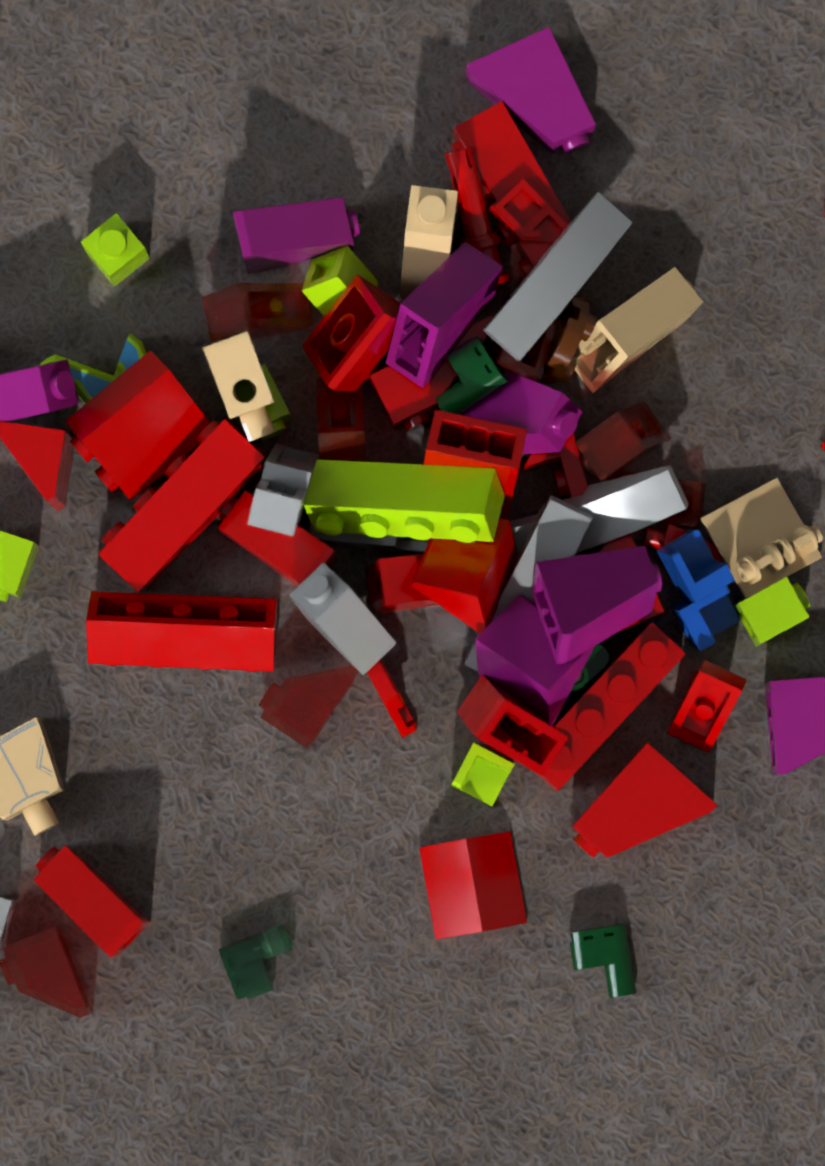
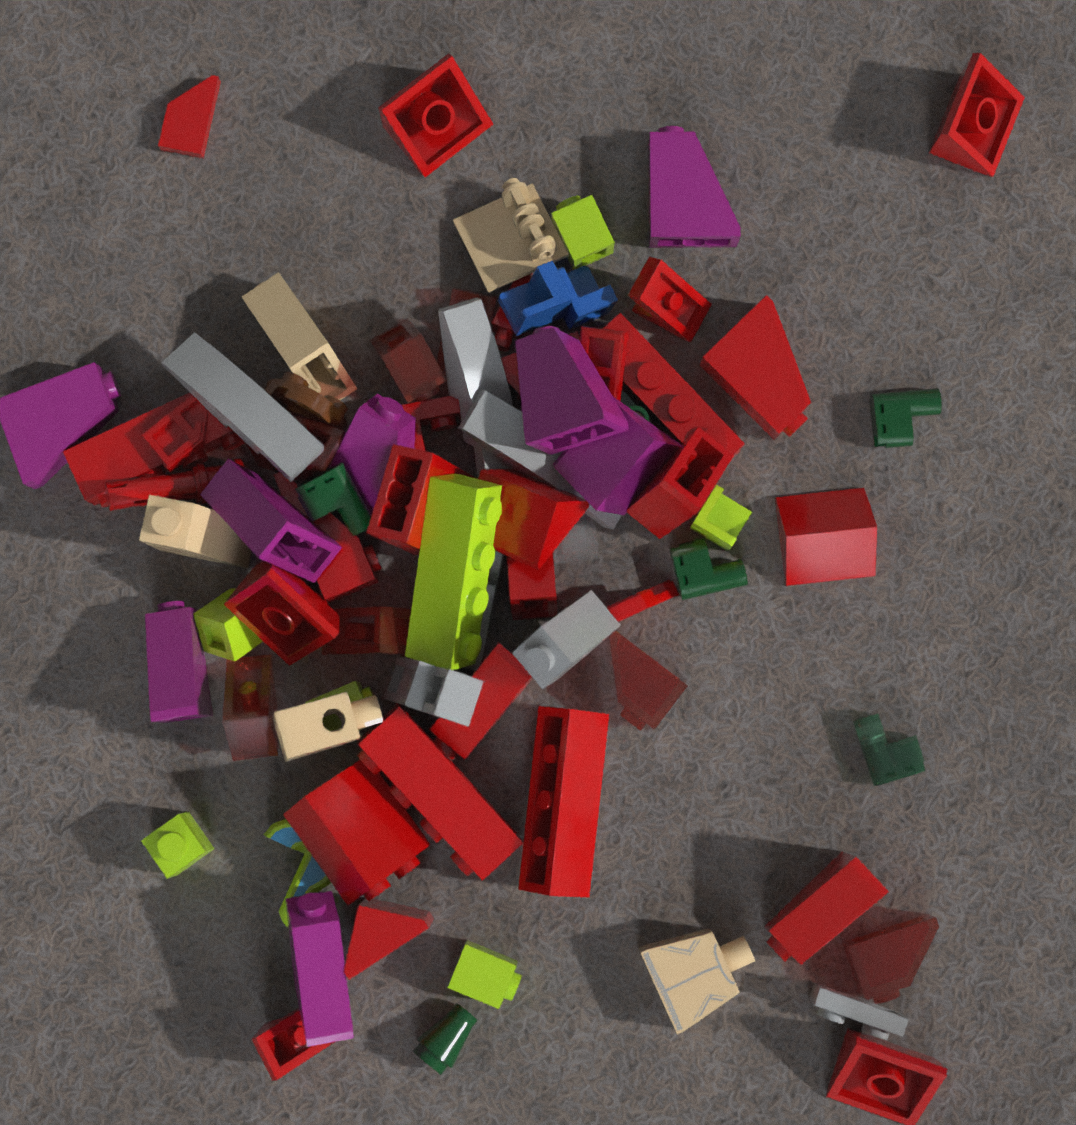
camera: 80 degrees left, 0 degrees up
(421, 755) = (697, 575): none -> dark green piece
(637, 642) = (608, 354): none -> red tile

